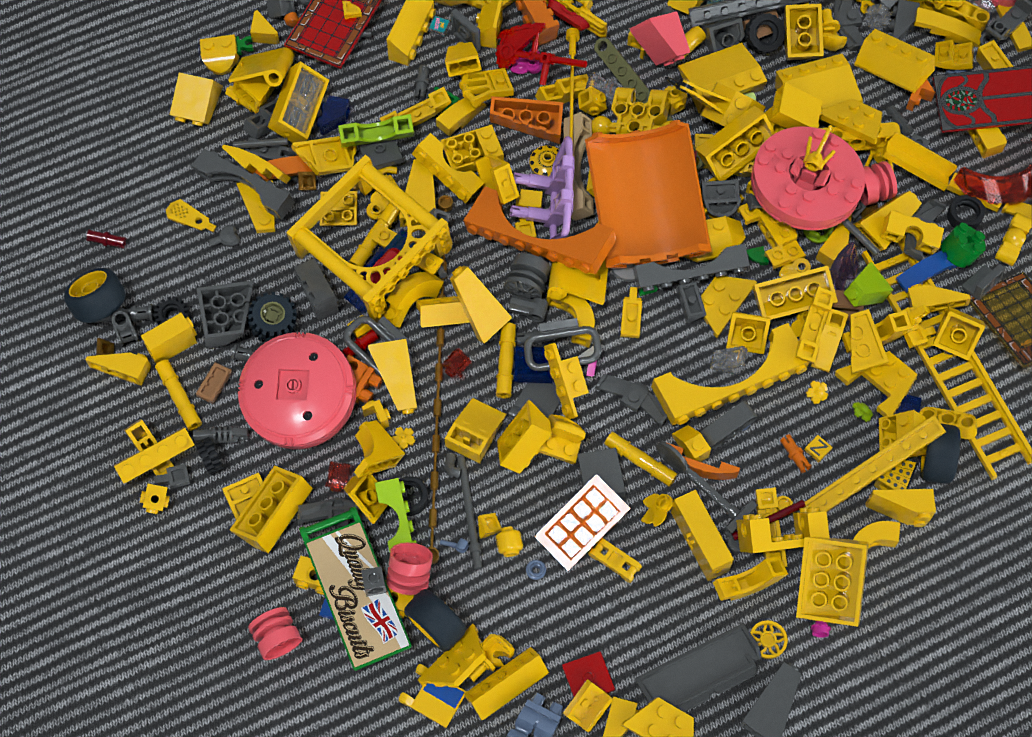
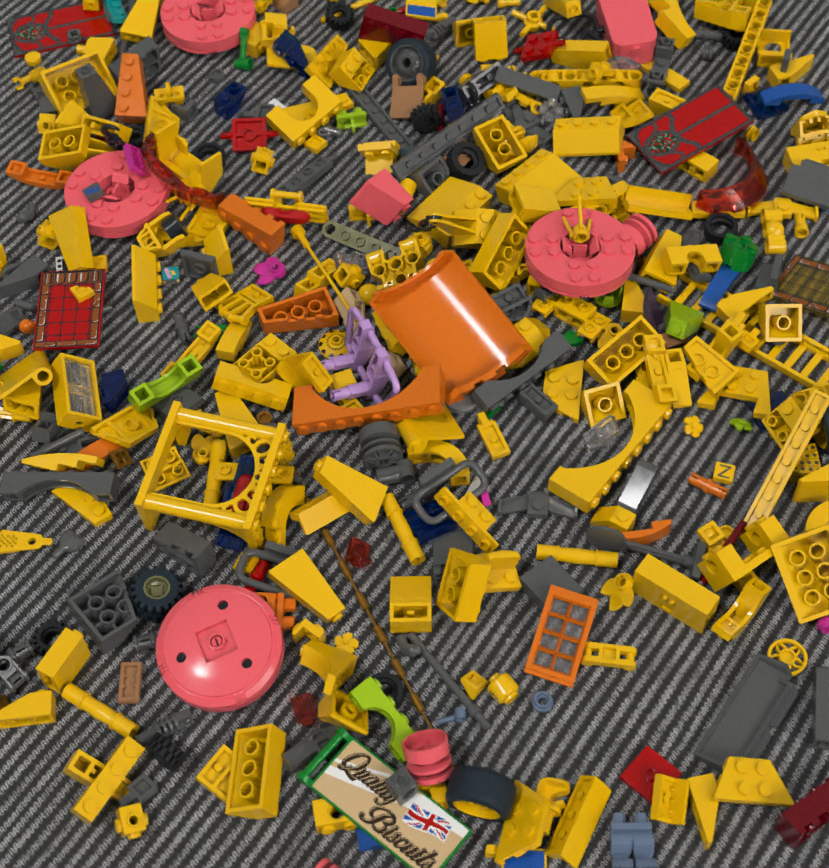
camera: 25 degrees left, 10 degrees down
(517, 38) = (252, 252): red bar -> none

